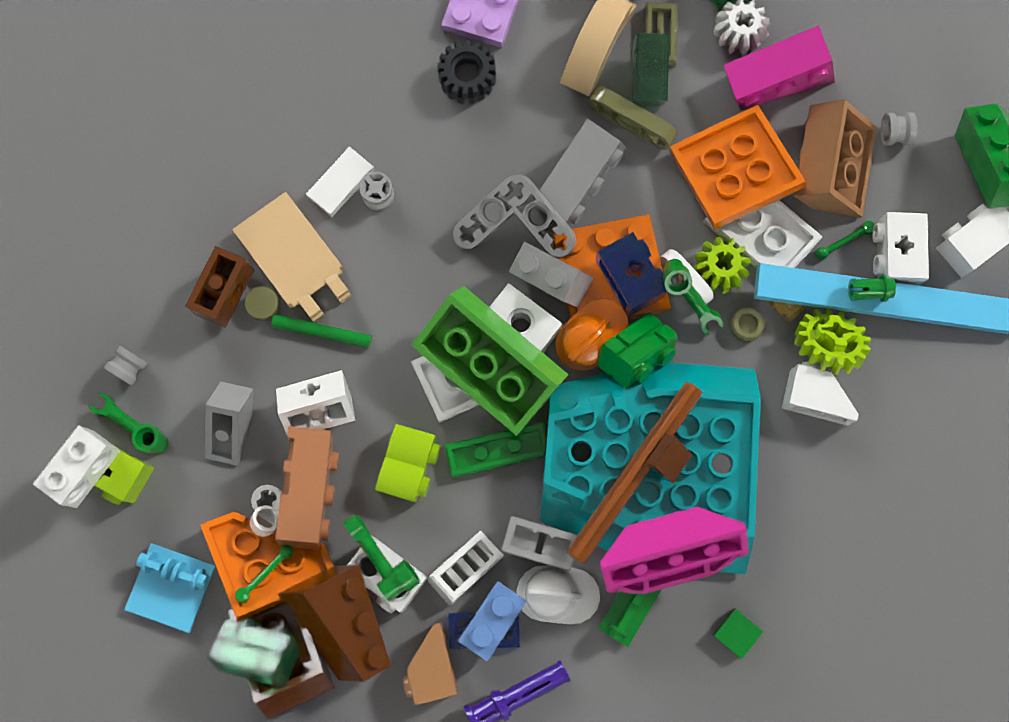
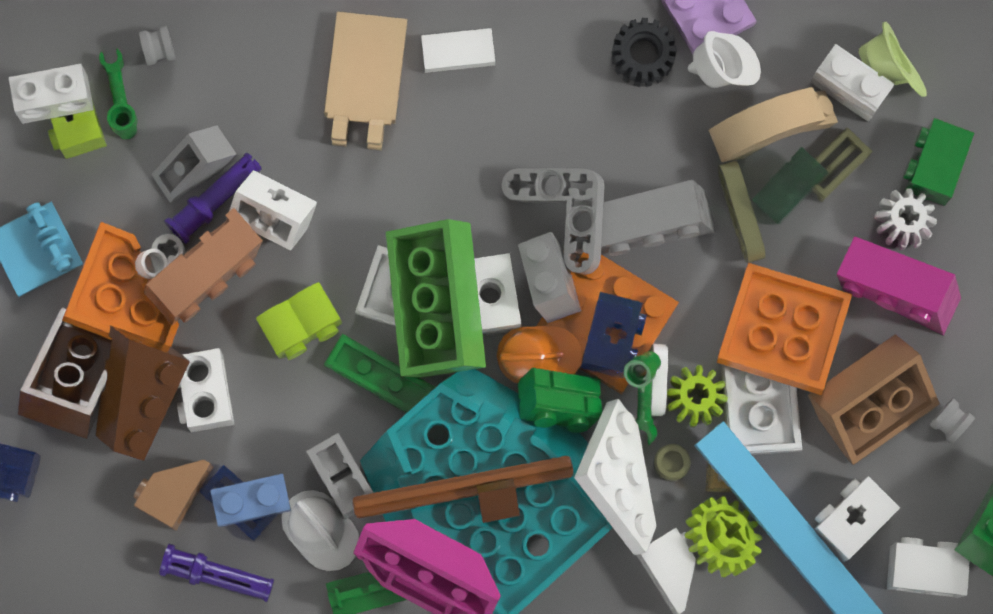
camera: 35 degrees right, 0 degrees up
(220, 287) = (284, 50): reddish brown brick -> none
(243, 594) = (84, 303): green hinge -> none
(255, 652) = (54, 354): clear green brick -> none
(262, 303) = (306, 92): olive tile -> none
(264, 449) = (201, 208): none -> dark purple pin
(321, 331) = (331, 157): green bar -> none
(374, 184) = (479, 77): light grey wheel -> none
(395, 578) = (208, 398): green brick -> none
(440, 585) = (237, 453): white slope -> none
(526, 30) = (725, 61): none -> white piece
(729, 366) = (617, 478): none -> white plate
(866, 228) = (791, 463): green hinge -> none
(879, 288) = (794, 525): green pin -> none

